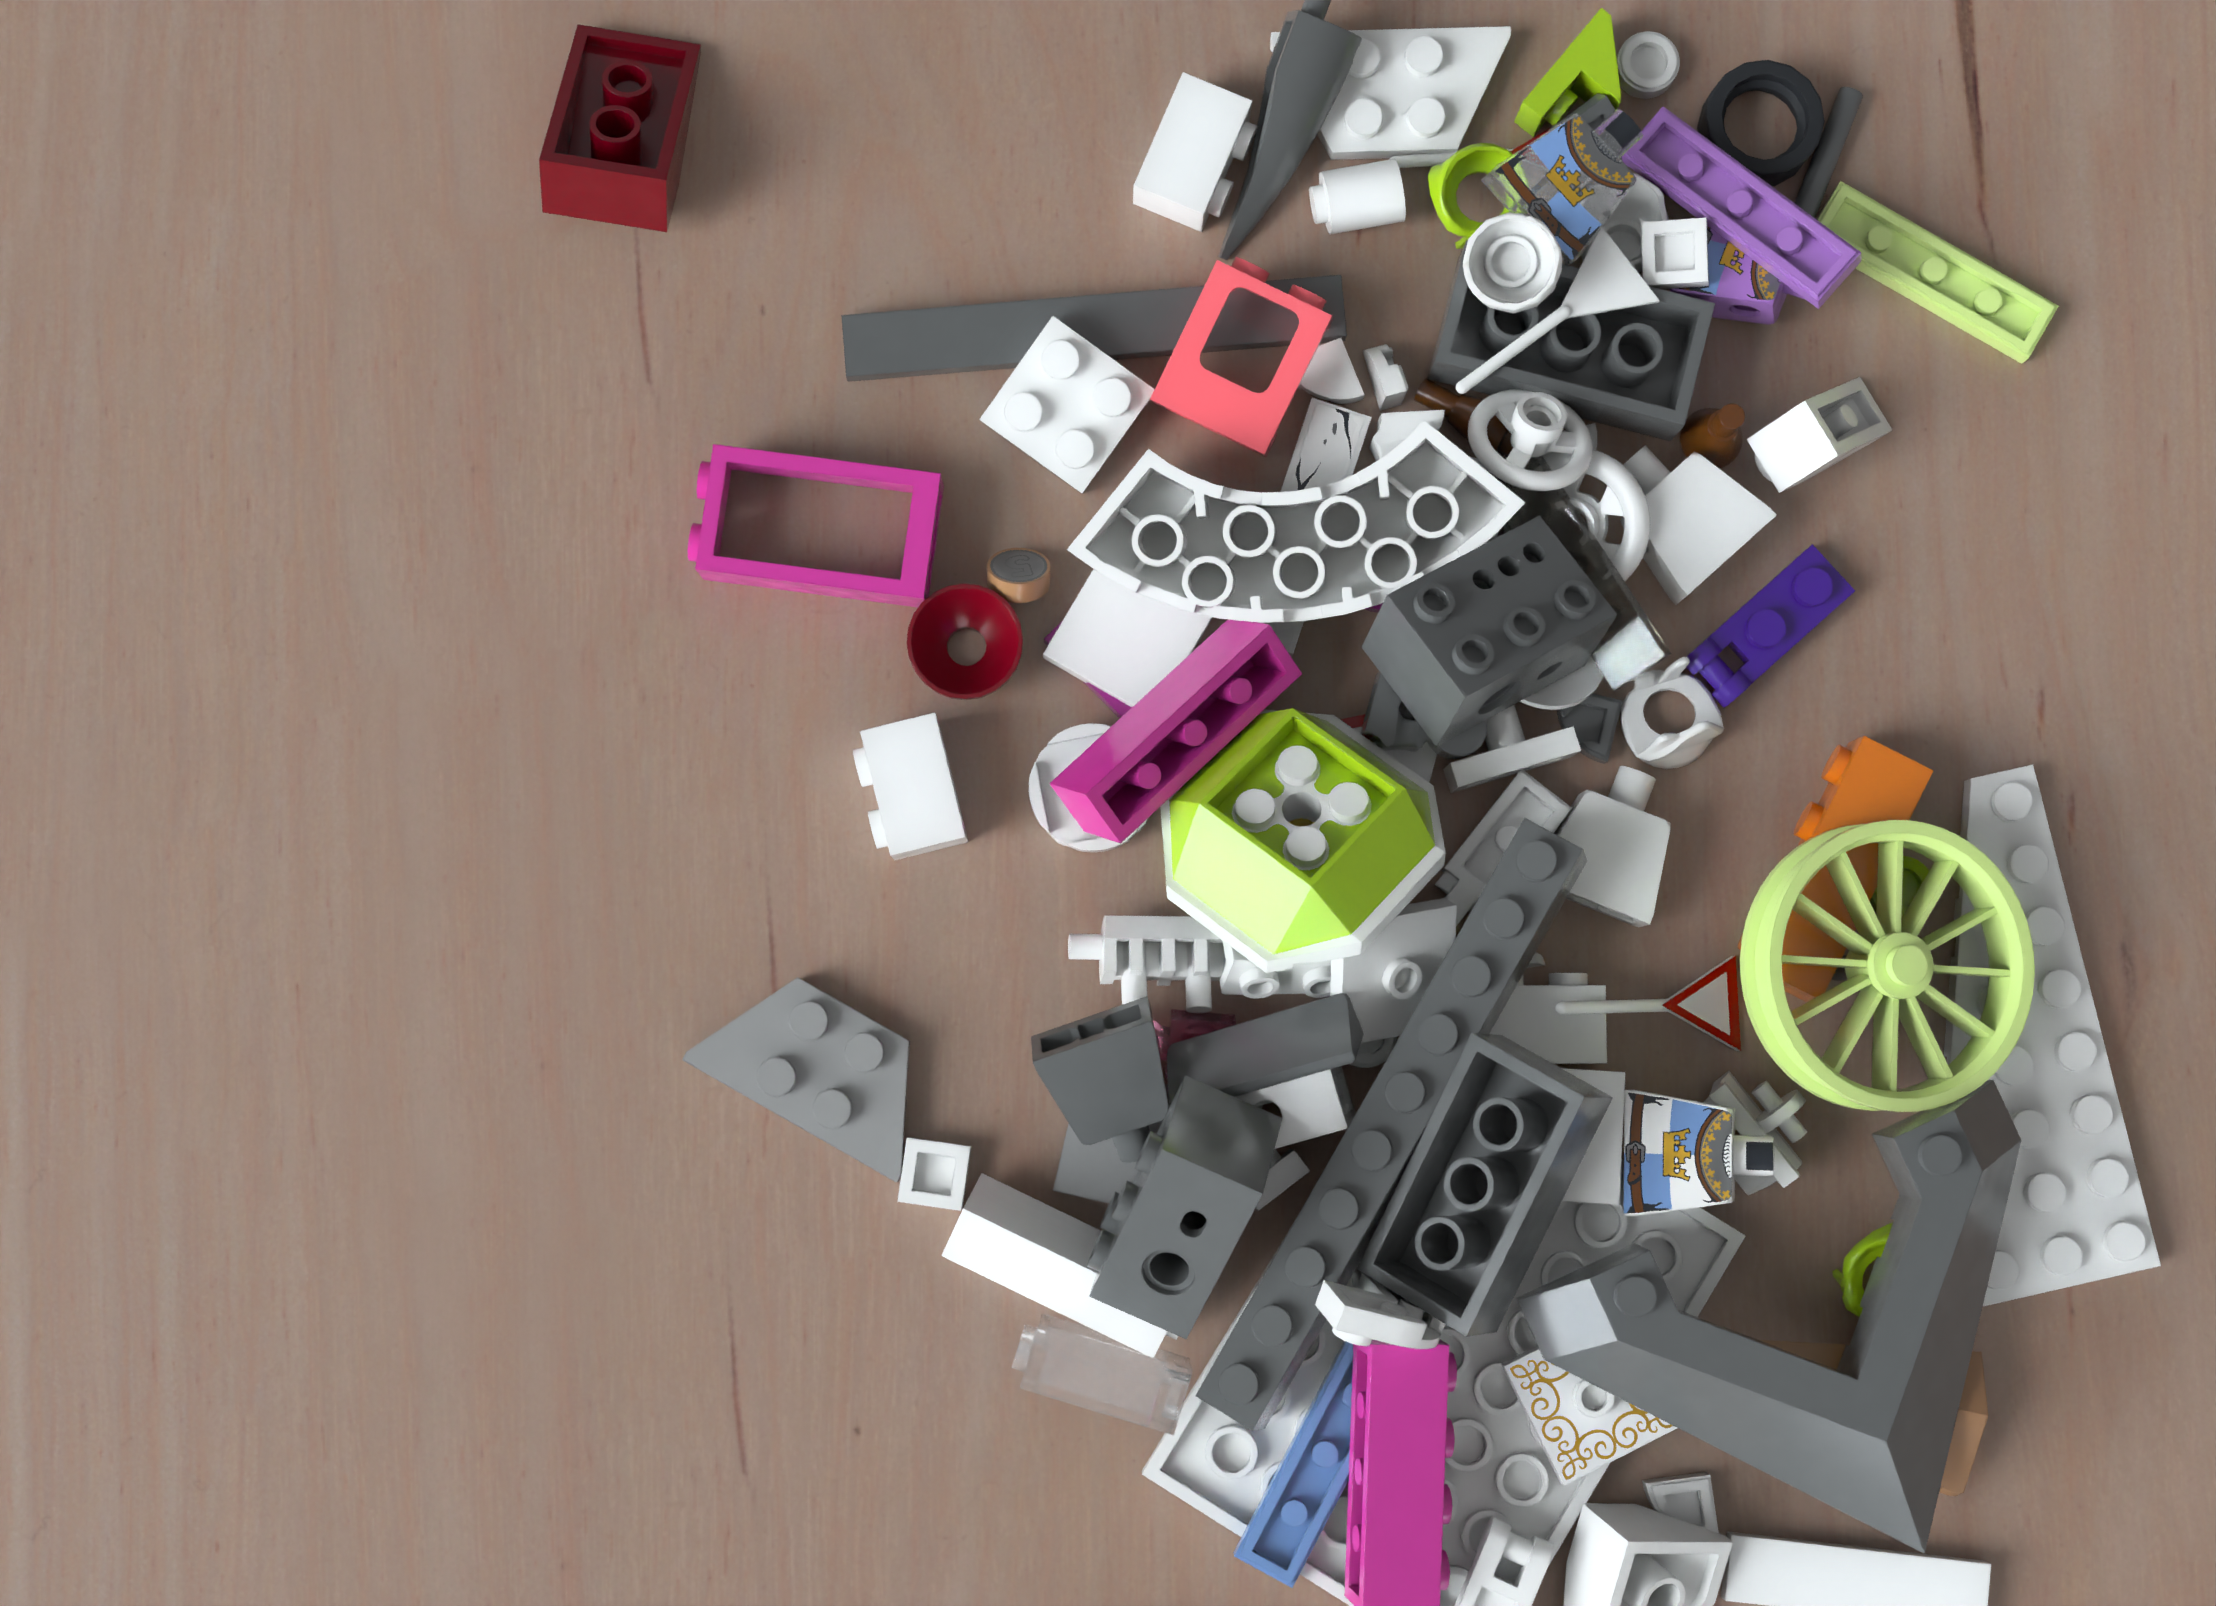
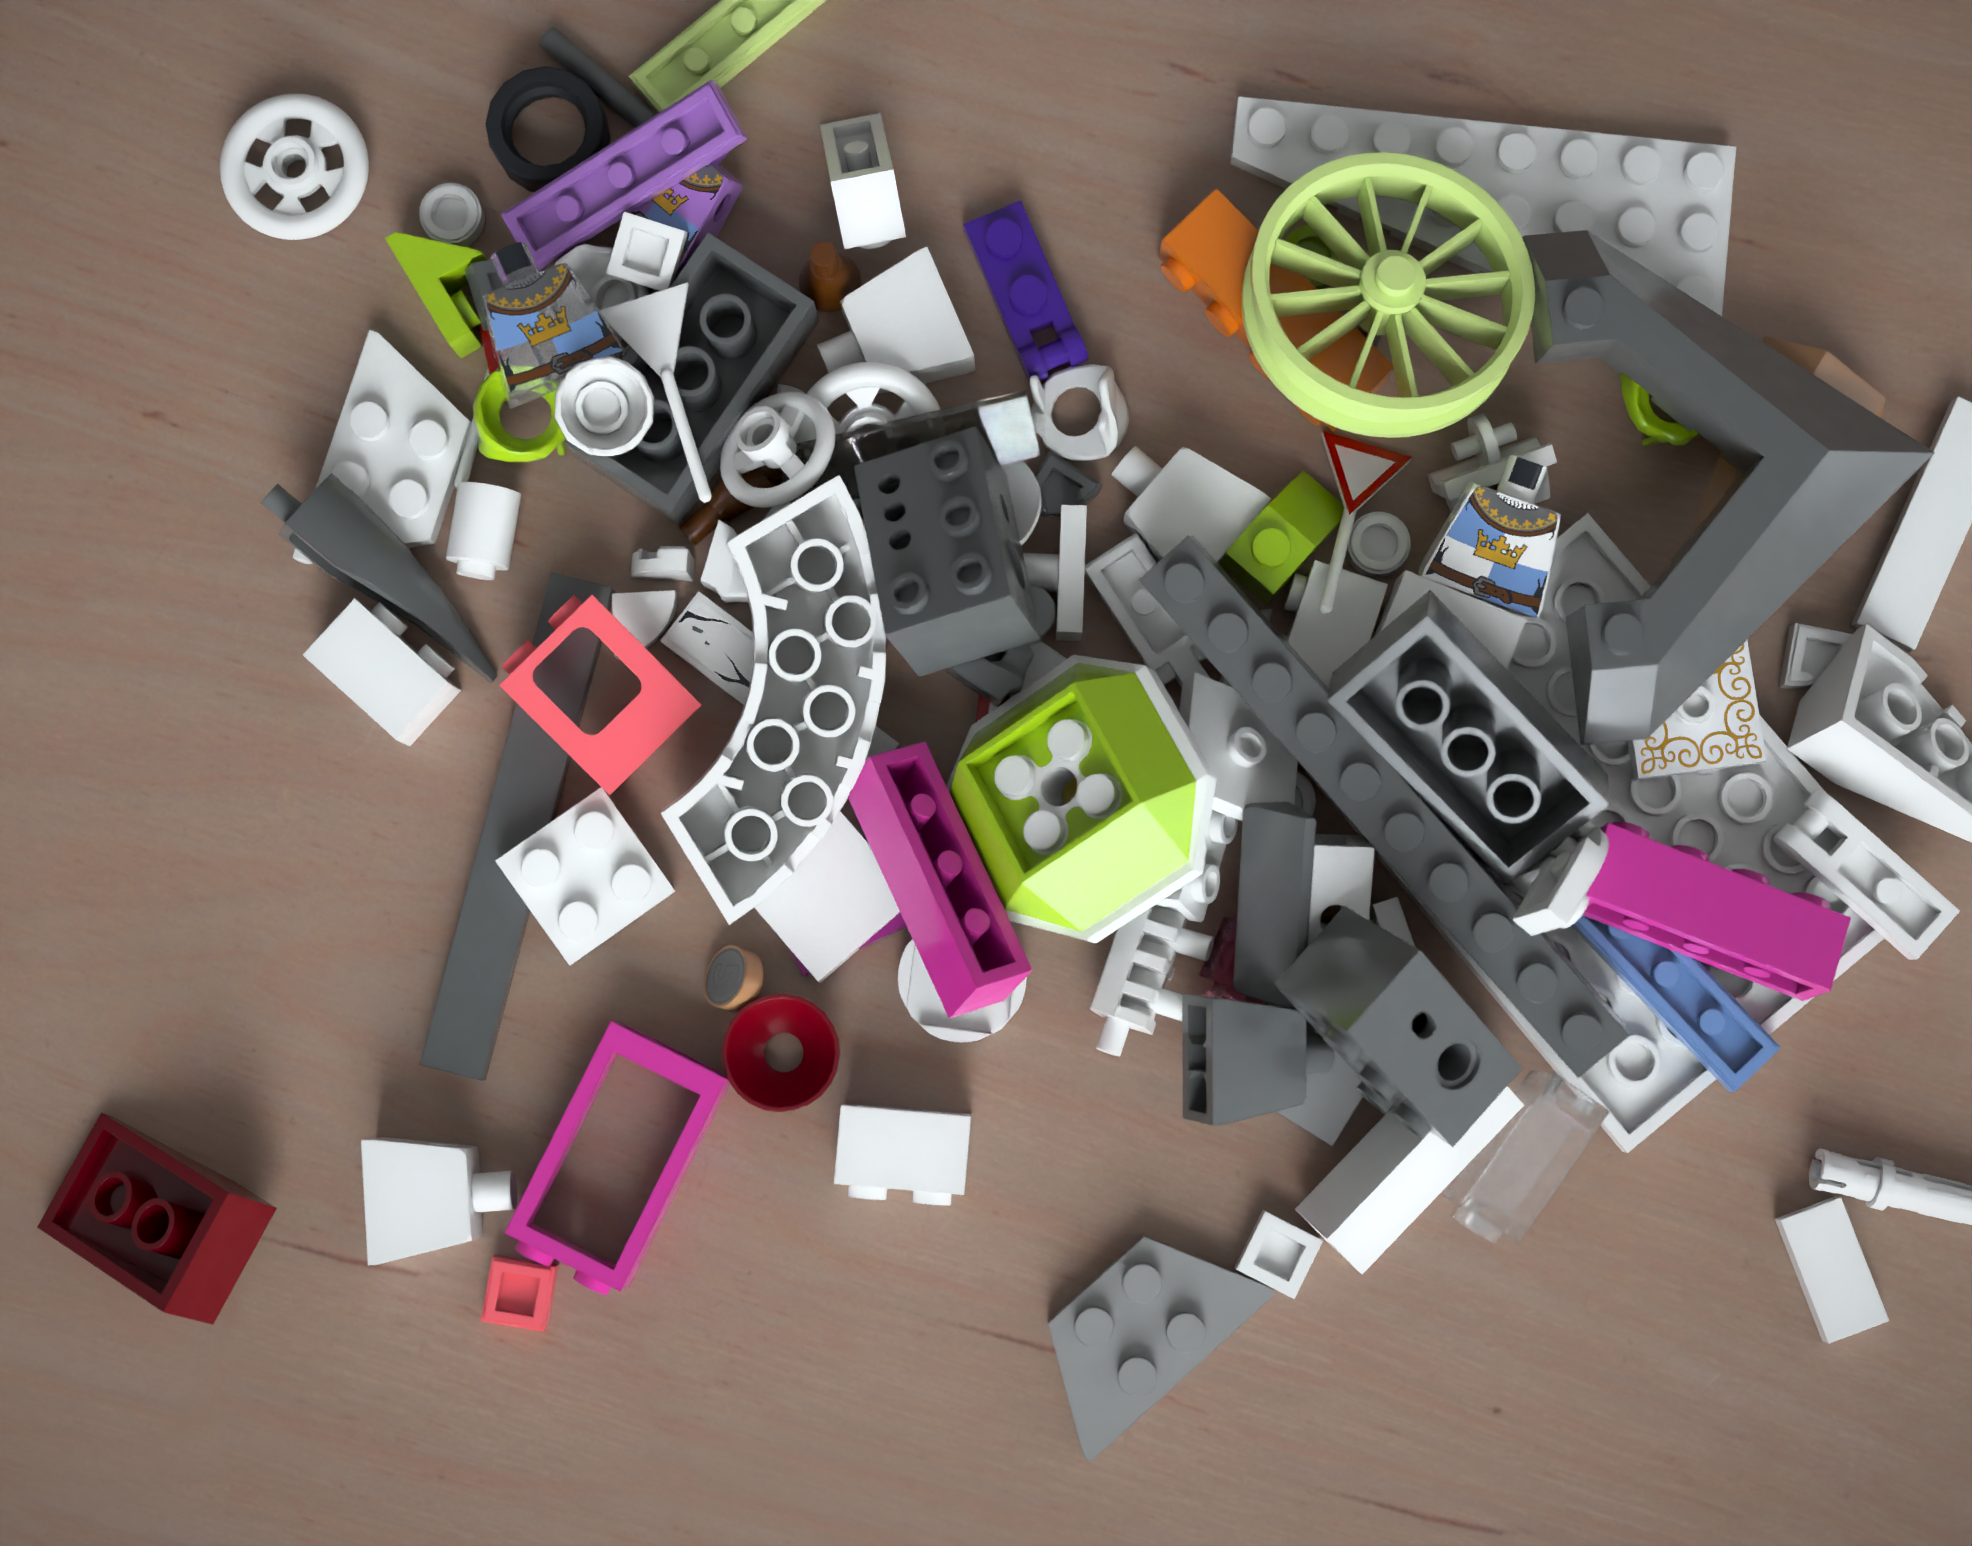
camera: 65 degrees left, 0 degrees up
(663, 480) = (519, 1293): none -> coral tile
(723, 363) = (426, 1196): none -> white torso
(1618, 950) = (1283, 537): none -> lime slope
(1643, 1044) = (1378, 544): none -> white tile

